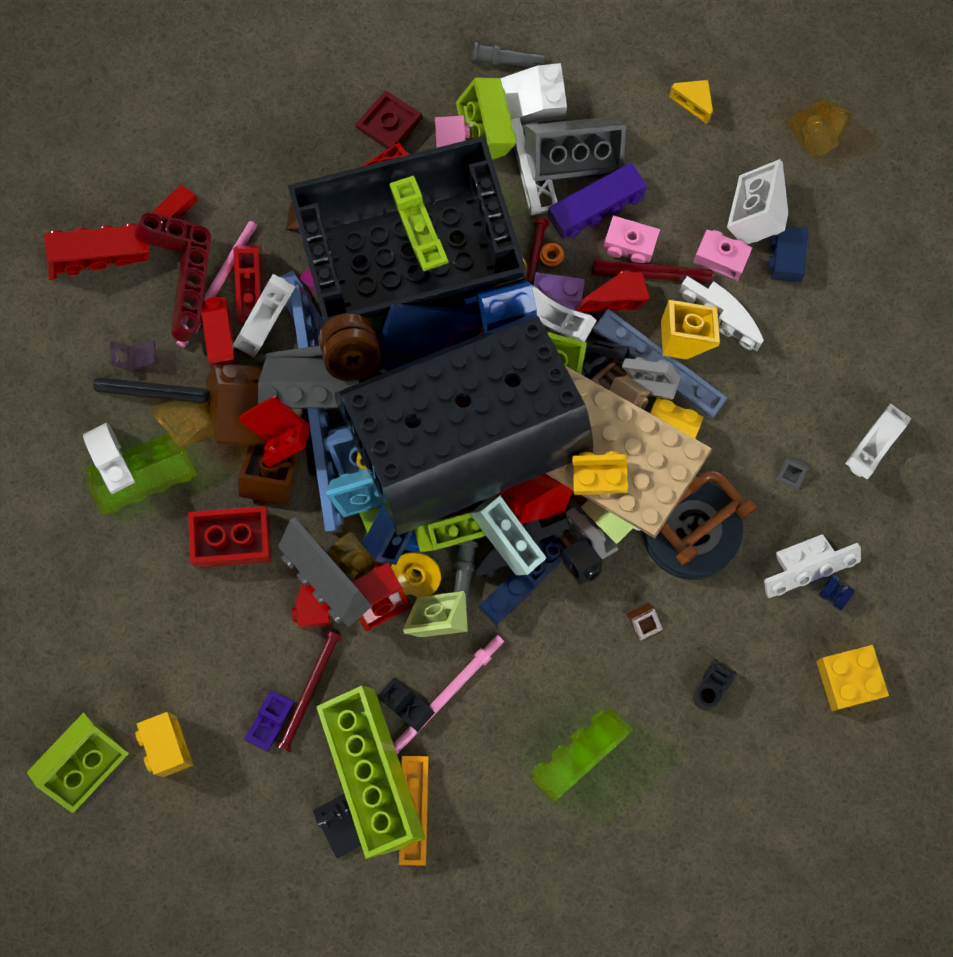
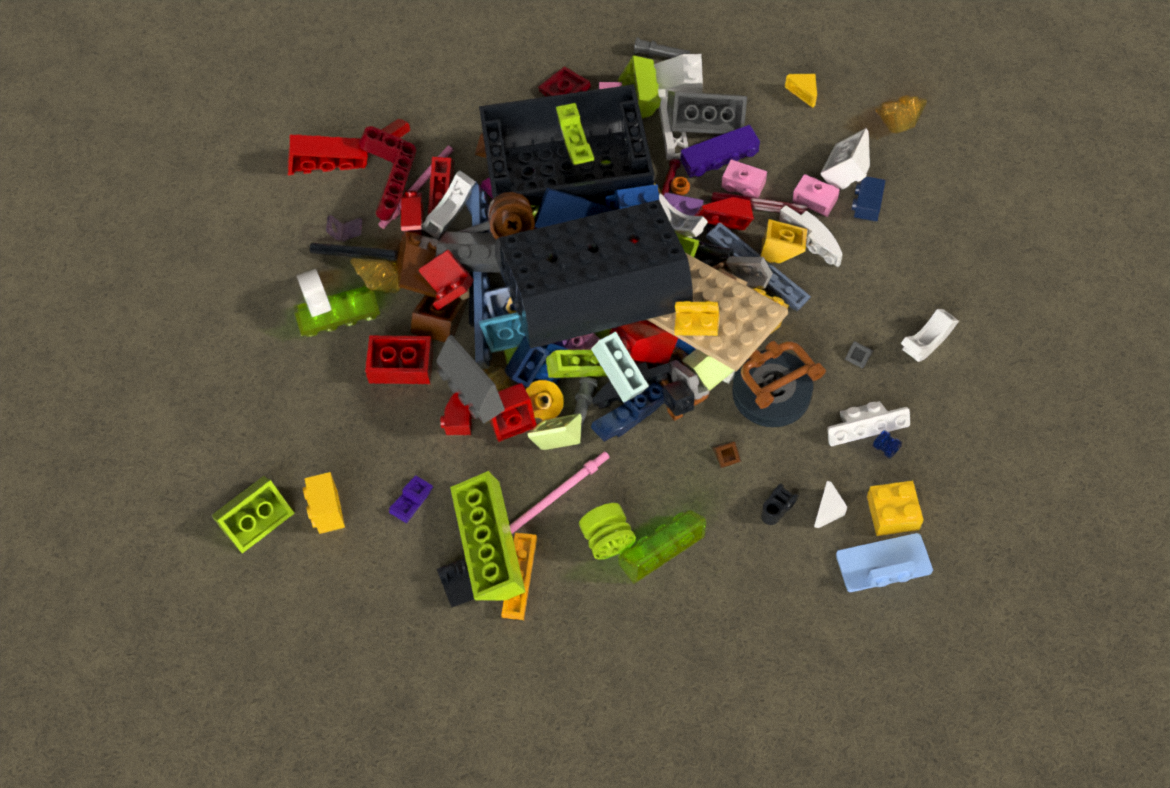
camera: 10 degrees right, 15 degrees down
(308, 691) = (421, 516): dark red bar -> none
(406, 704) = (523, 497): black slope -> none
(514, 747) = (607, 531): none -> lime wheel
(775, 681) = (831, 506): none -> white slope
(844, 748) = (884, 562): none -> light blue bracket

